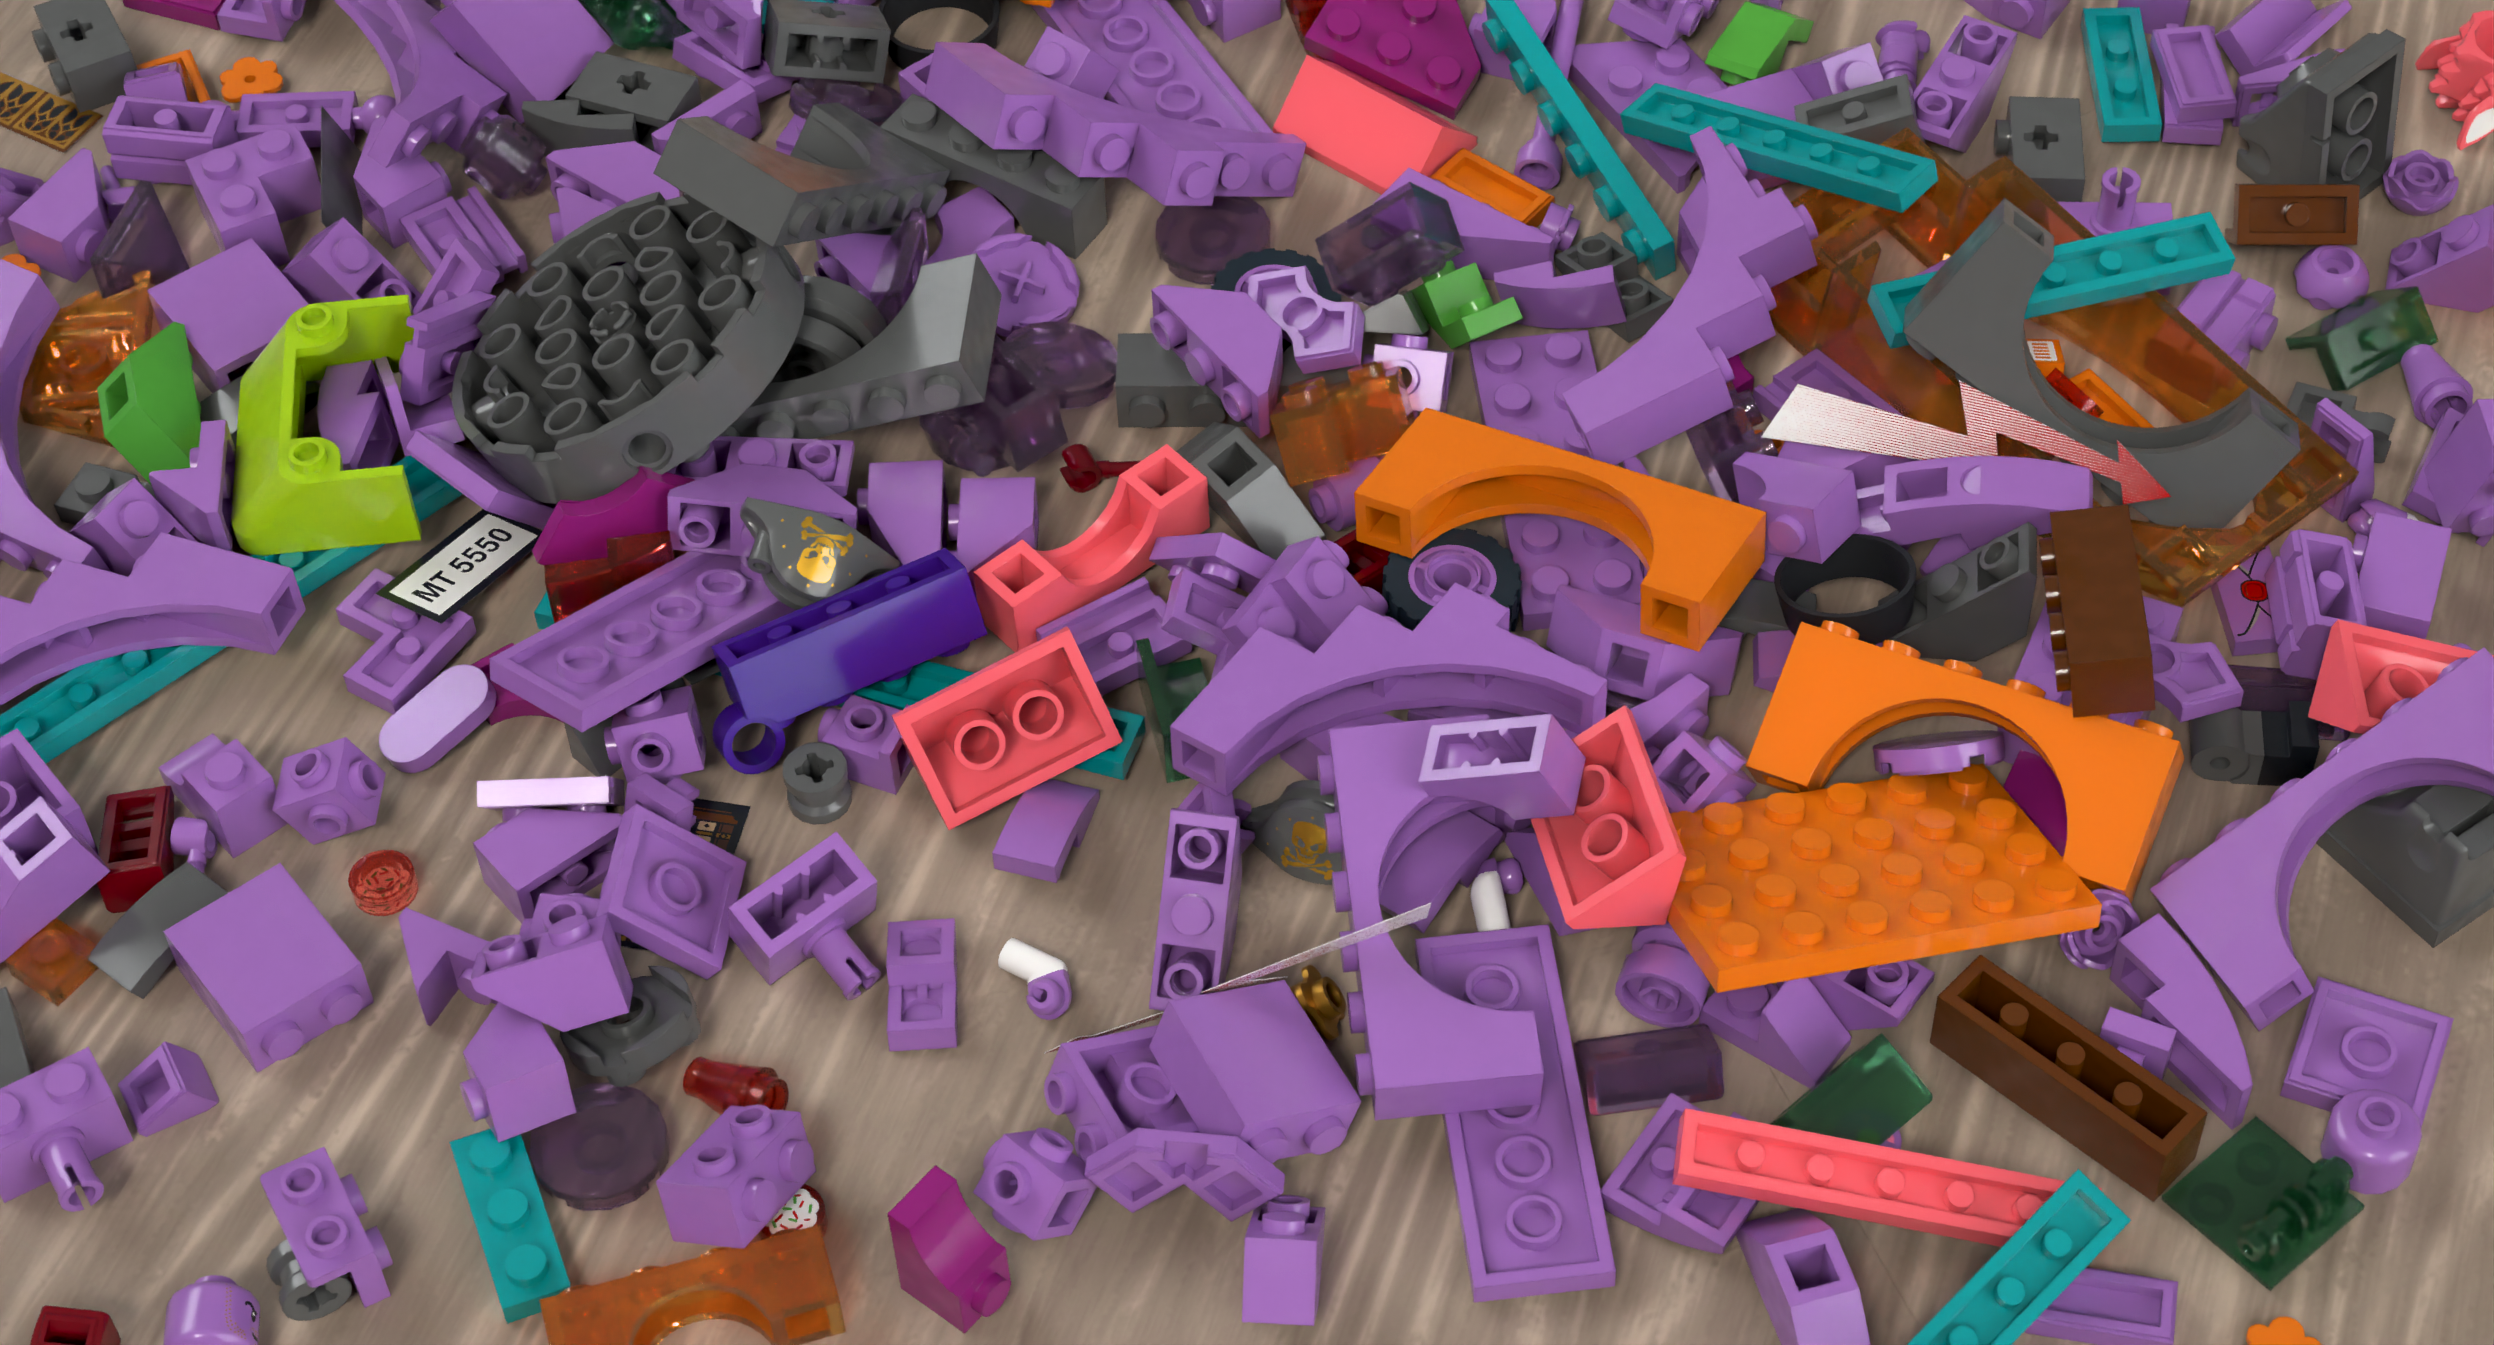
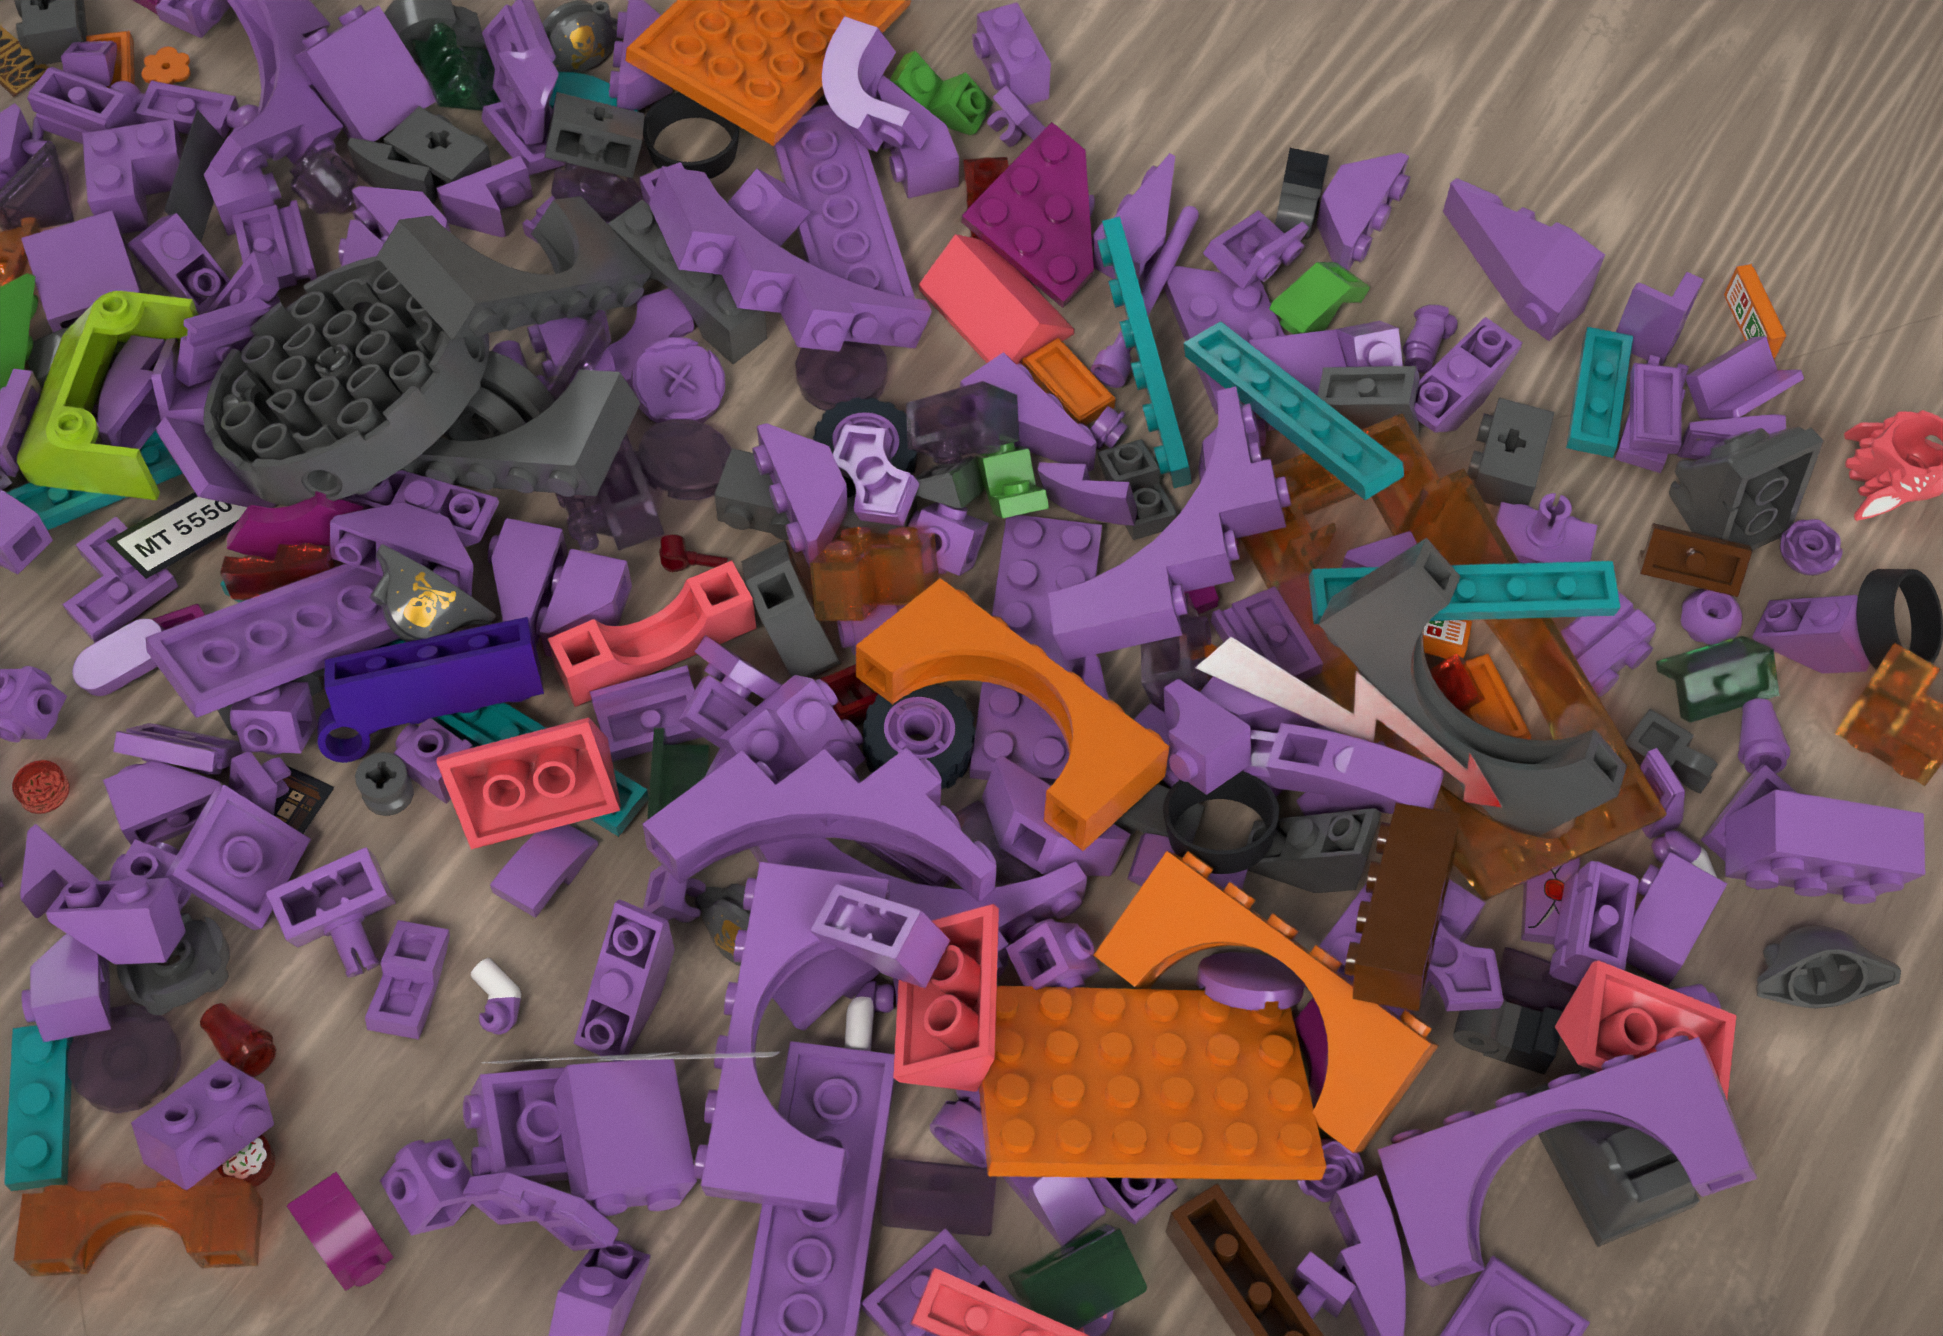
camera: 10 degrees right, 10 degrees up
(1320, 1001) = (697, 1077): pearl gold plate -> none

